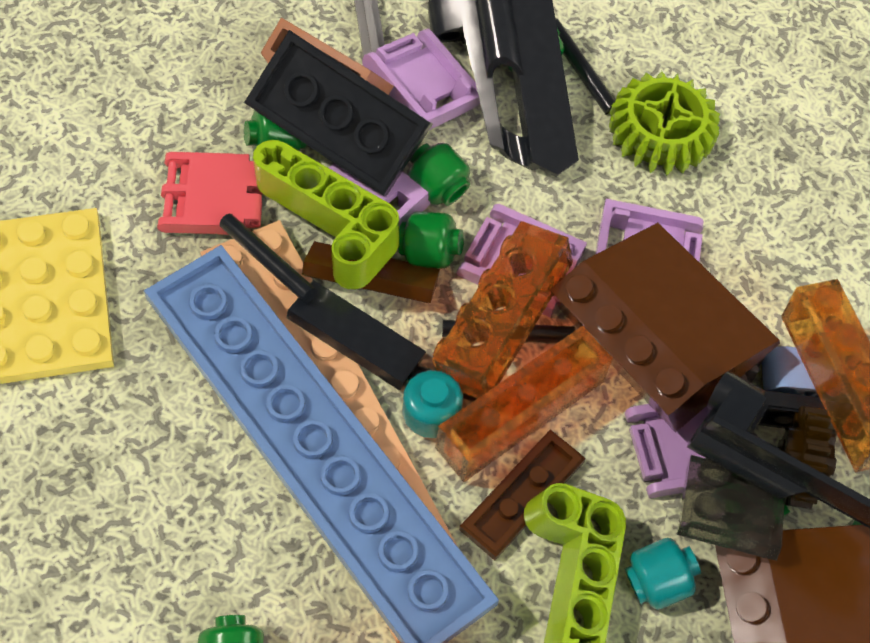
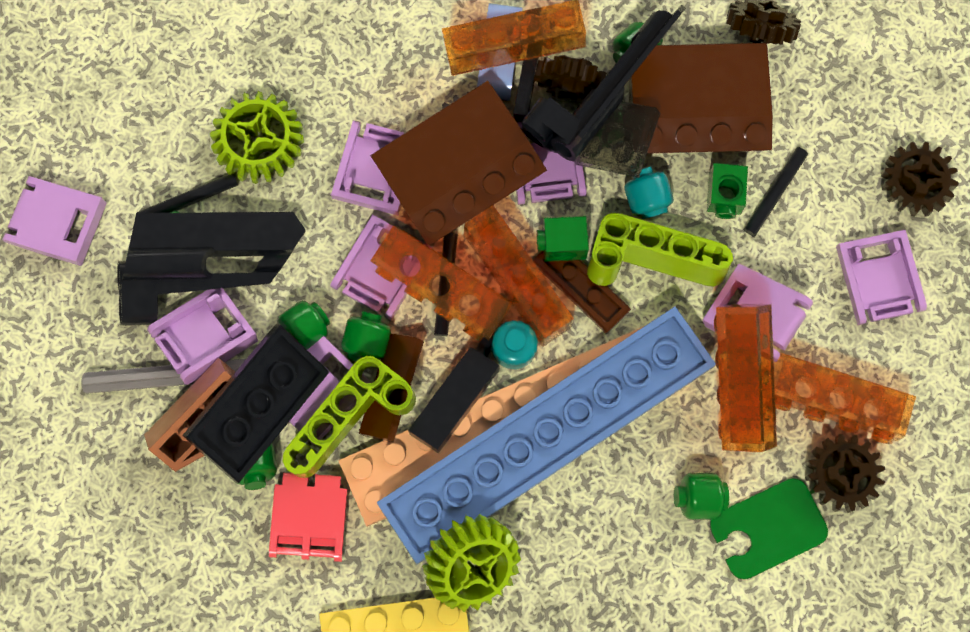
camera: 85 degrees left, 15 degrees up
(155, 350) = (461, 582): none -> lime gear
(268, 258) = (386, 466): black bar -> none
(581, 454) = (563, 239): none -> green brick

